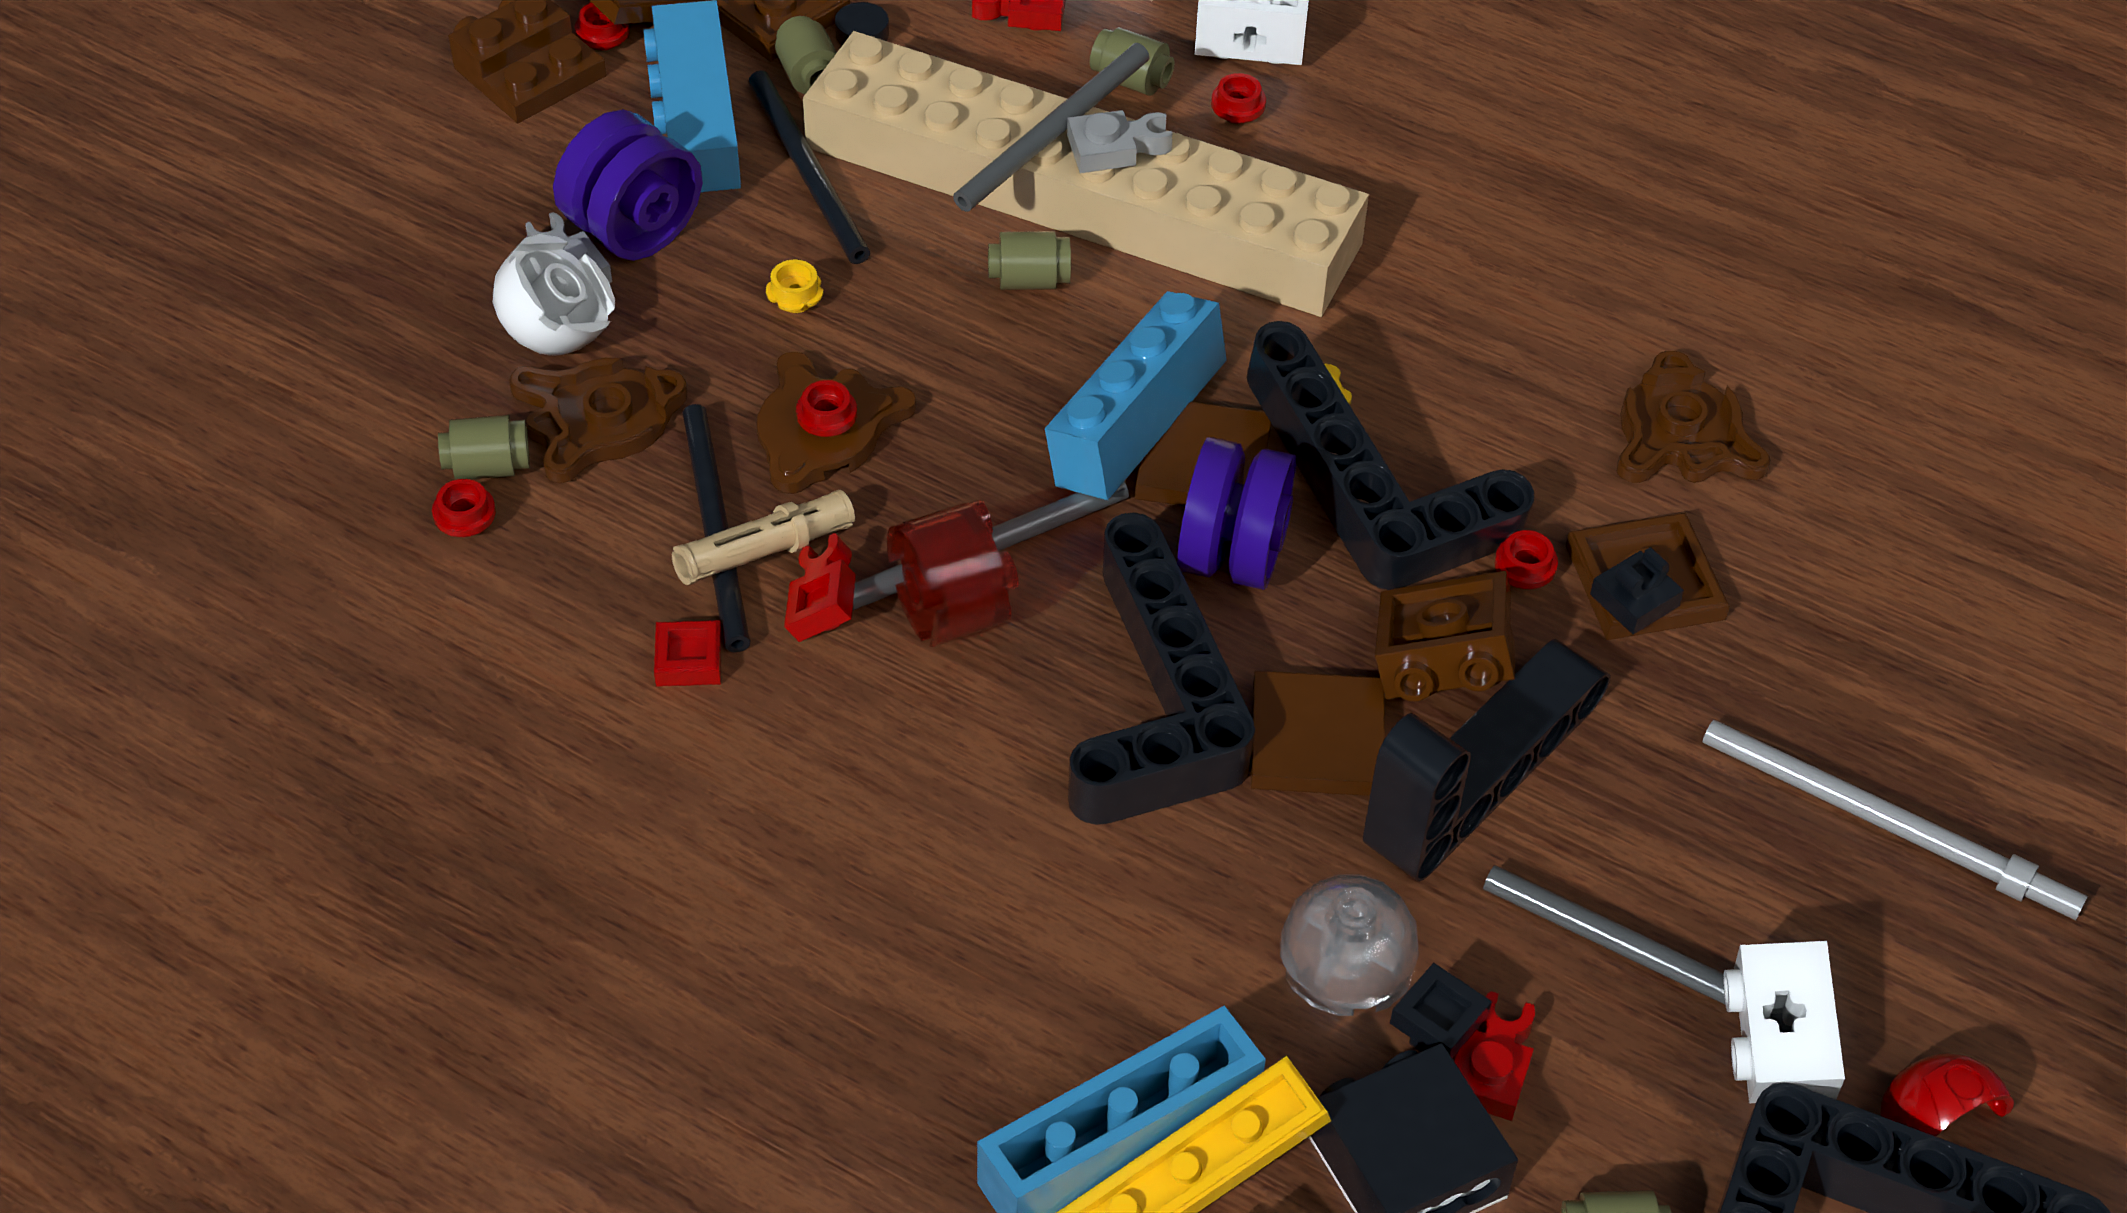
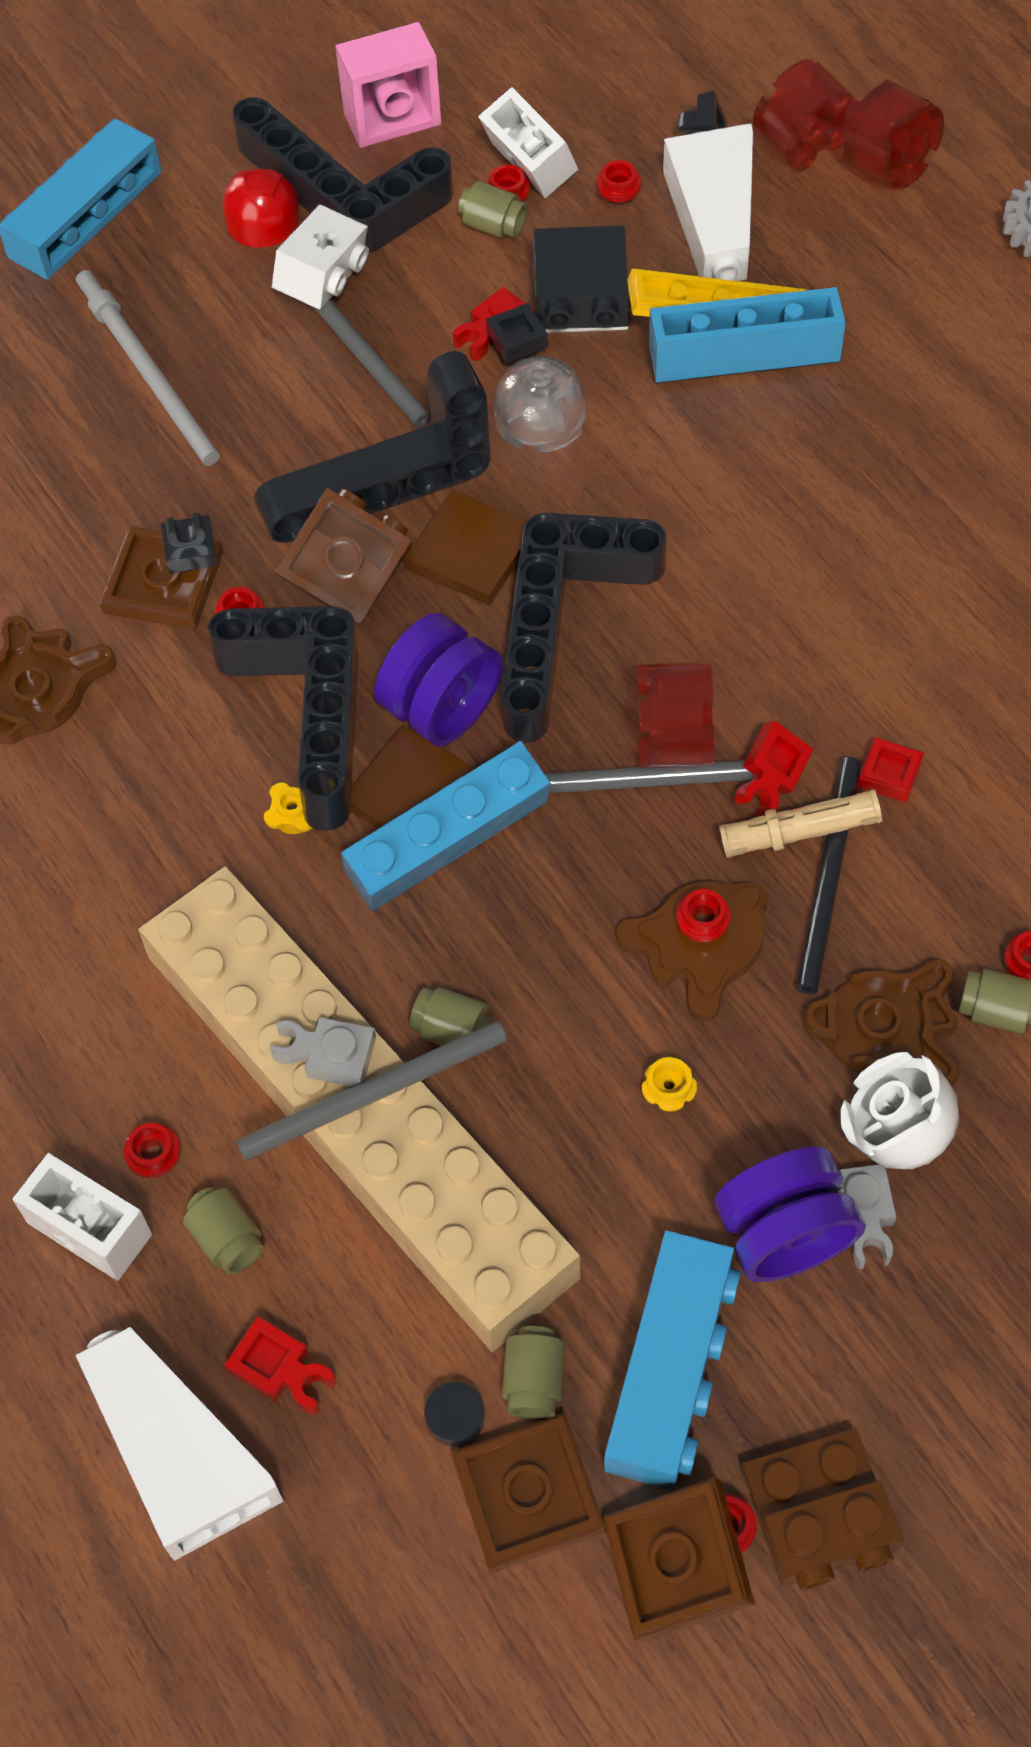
camera: 150 degrees left, 10 degrees up
(809, 168) = (592, 1246): black piece -> none

